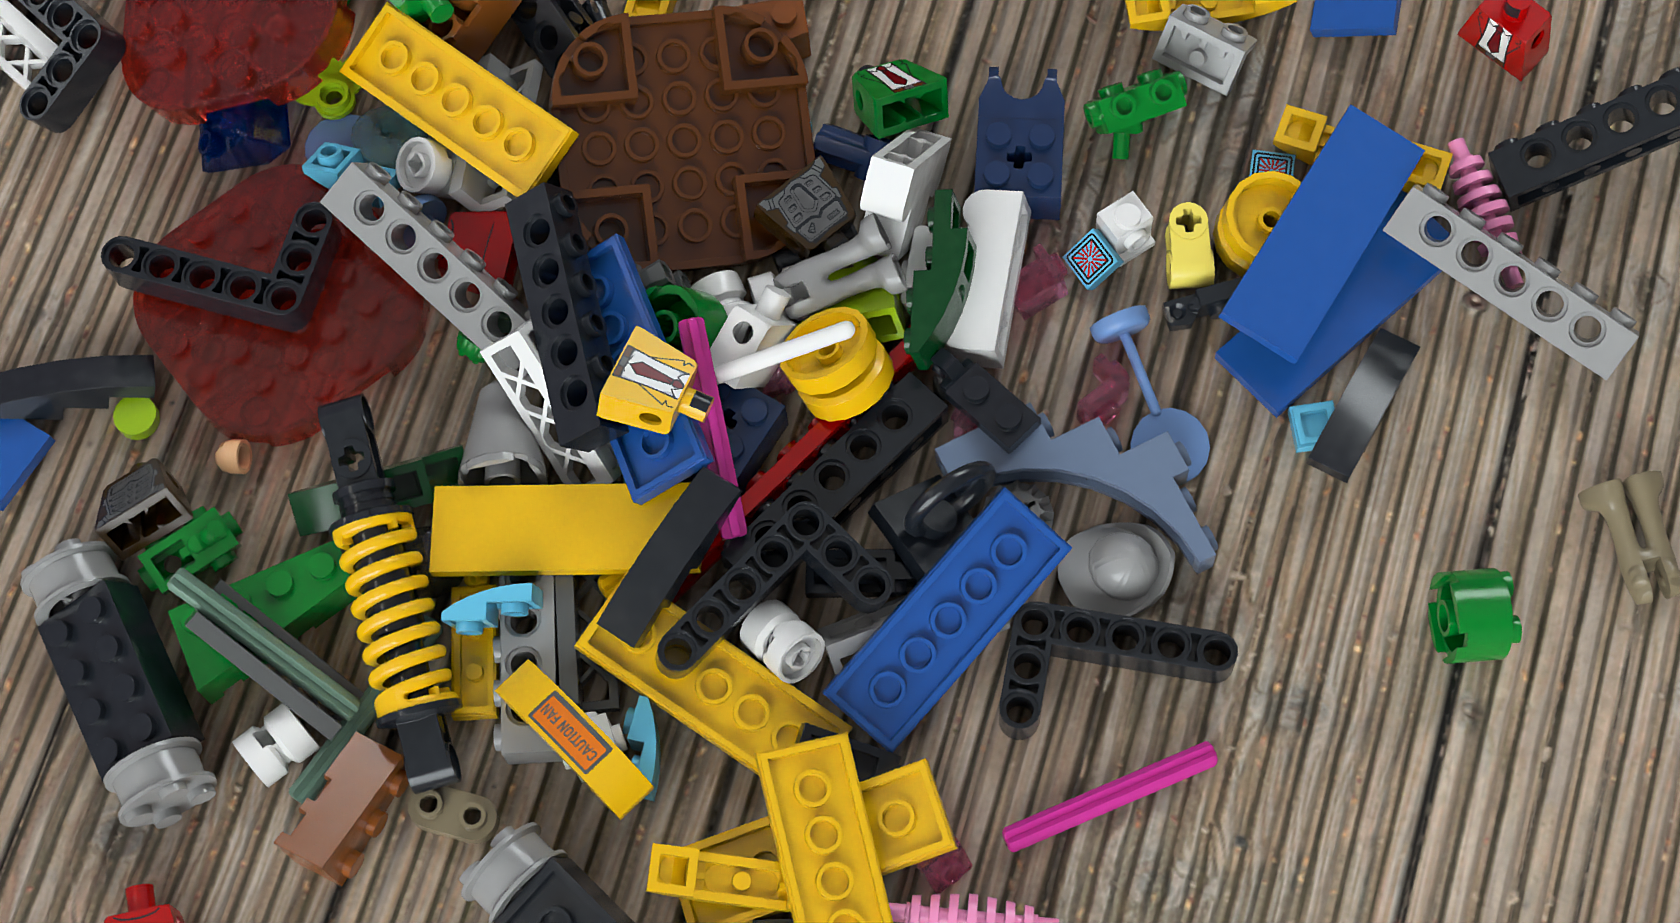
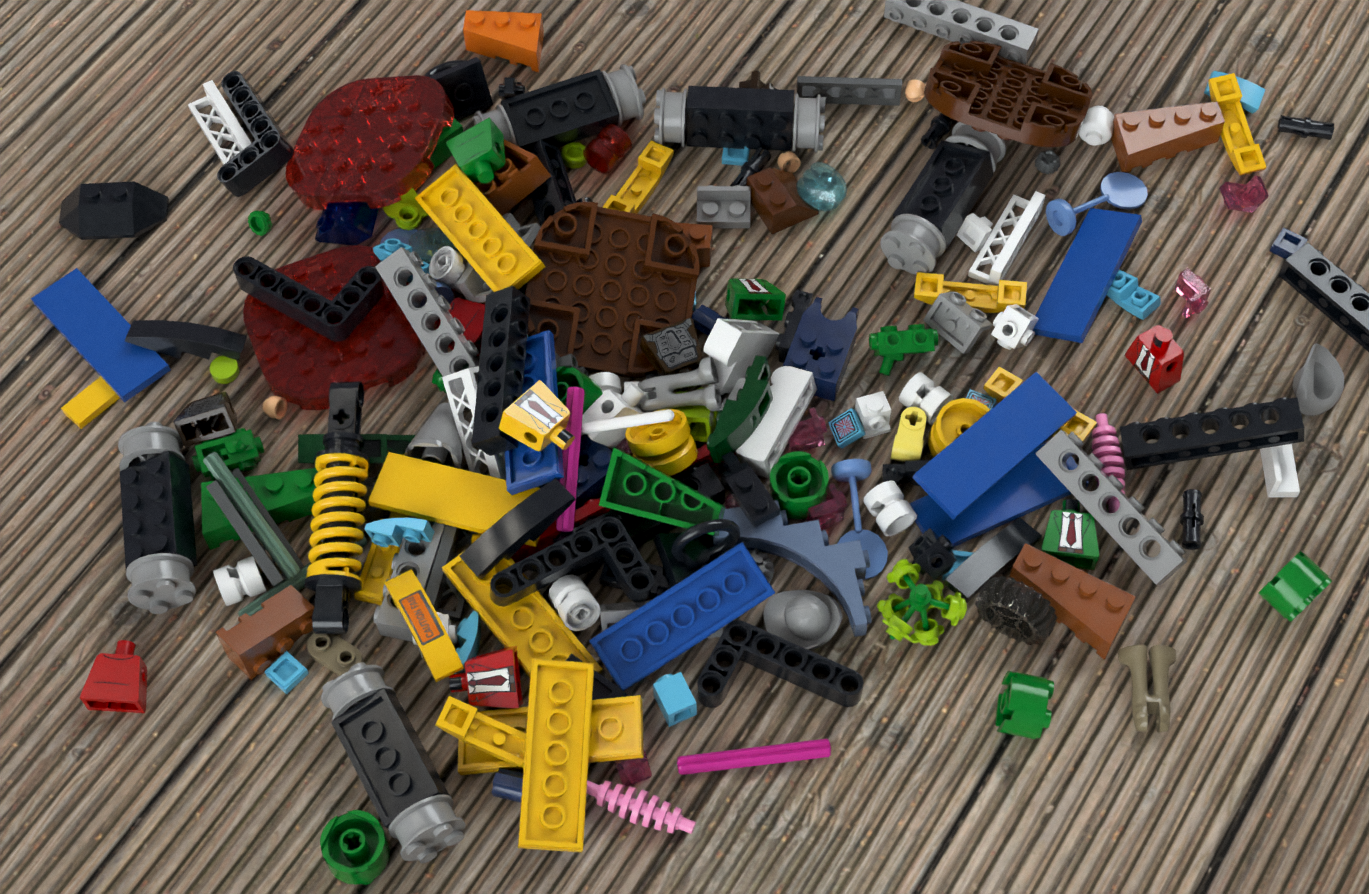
camera: 10 degrees right, 10 degrees down
(110, 167) = (260, 222): none -> green piece
(391, 861) = (286, 672): none -> medium azure tile
(698, 792) = (491, 679): none -> torso
(854, 450) = (649, 493): none -> green wedge
(967, 83) = (800, 303): none -> black hinge
(970, 742) = (674, 698): none -> medium azure brick
(1067, 353) = (798, 483): none -> green brick
(1195, 369) = (889, 508): none -> white wheel
(1210, 184) = (922, 394): none -> white wheel
(1277, 422) = (933, 554): none -> black brick
(1286, 491) = (921, 599): none -> lime plant
(1291, 36) = (1014, 327): none -> white brick
(1422, 476) = (1016, 610): none -> clear smoke gear
(1462, 341) = (1072, 536): none -> green torso
(1494, 431) = (1081, 601): none -> dark orange wedge
(1626, 264) = (1191, 519): none -> black pin

